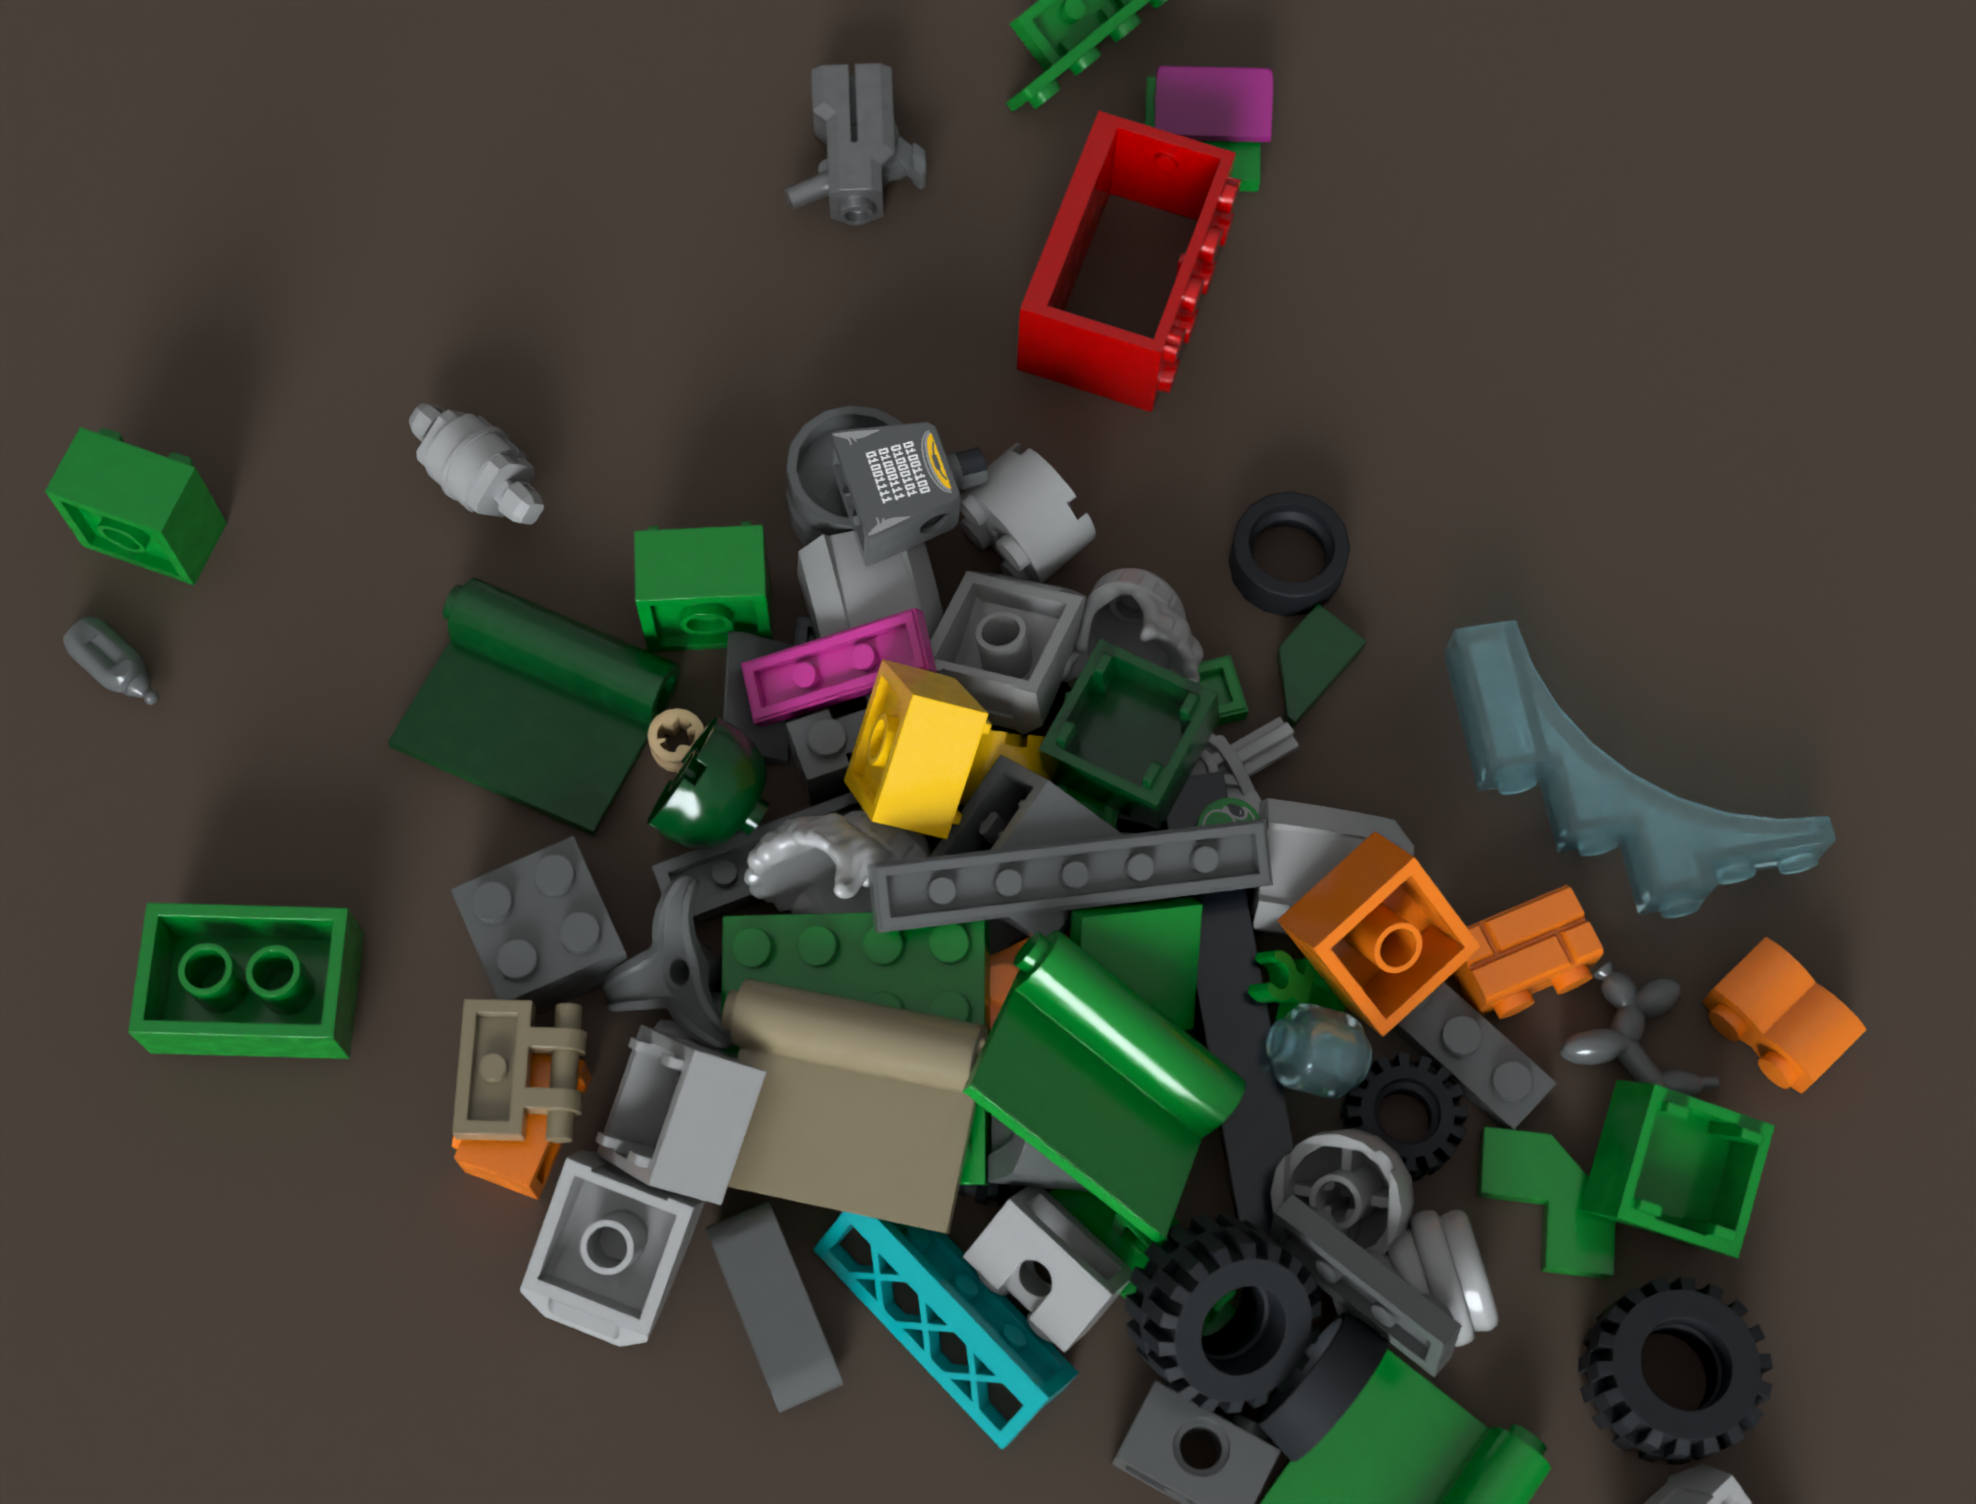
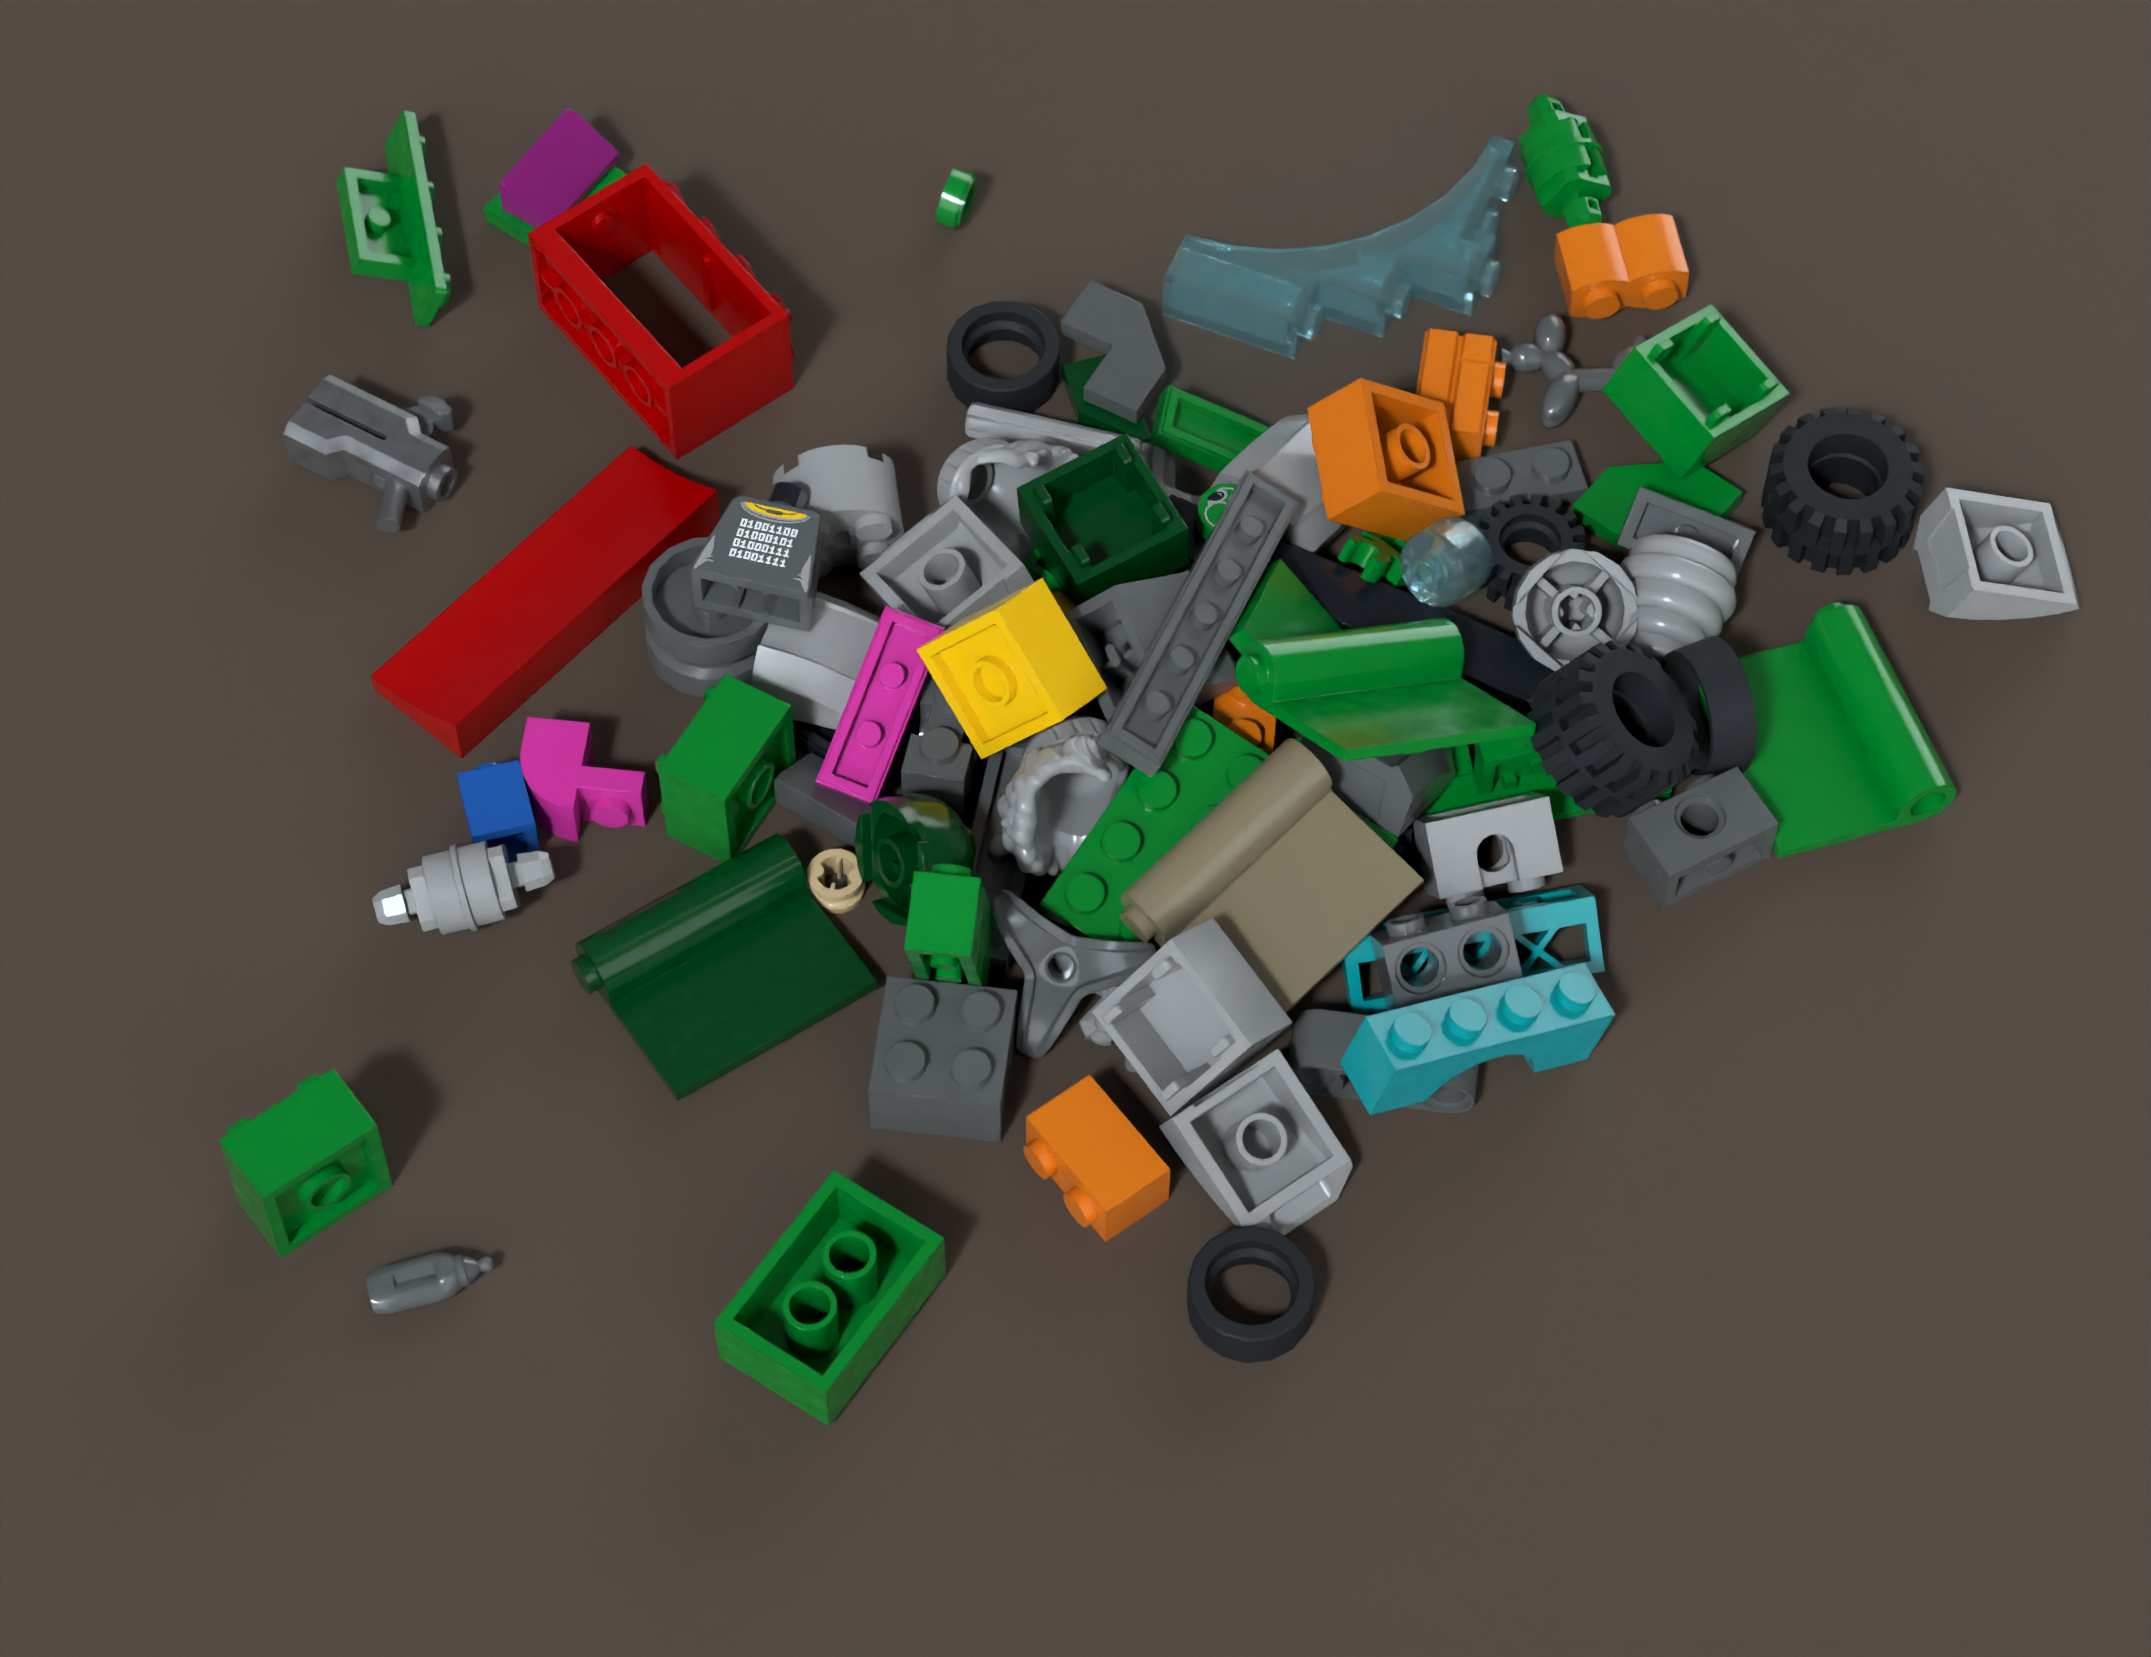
camera: 55 degrees left, 10 degrees down
(420, 1303) = (1260, 1248): none -> black tyre
(496, 1070) = (1062, 1131): dark tan plate -> none
(569, 444) = (498, 807): none -> blue brick
(609, 858) = (949, 926): none -> green brick
(630, 469) = (567, 788): none -> dark pink brick
(803, 355) = (544, 601): none -> red arch
(823, 1379) = (1418, 1048): none -> teal arch
(884, 1310) = (1444, 939): none -> dark grey brick
(1241, 640) = (1013, 425): none -> light grey axle
(1326, 759) = (1201, 429): none -> green tile
(1351, 662) = (1132, 364): none -> dark grey tile
(1367, 1285) = (1667, 616): dark grey plate -> none
(1425, 416) = (956, 198): none -> green tile
(1517, 1251) = (1662, 514): none -> dark grey plate
(1854, 898) = (1563, 163): none -> green piece

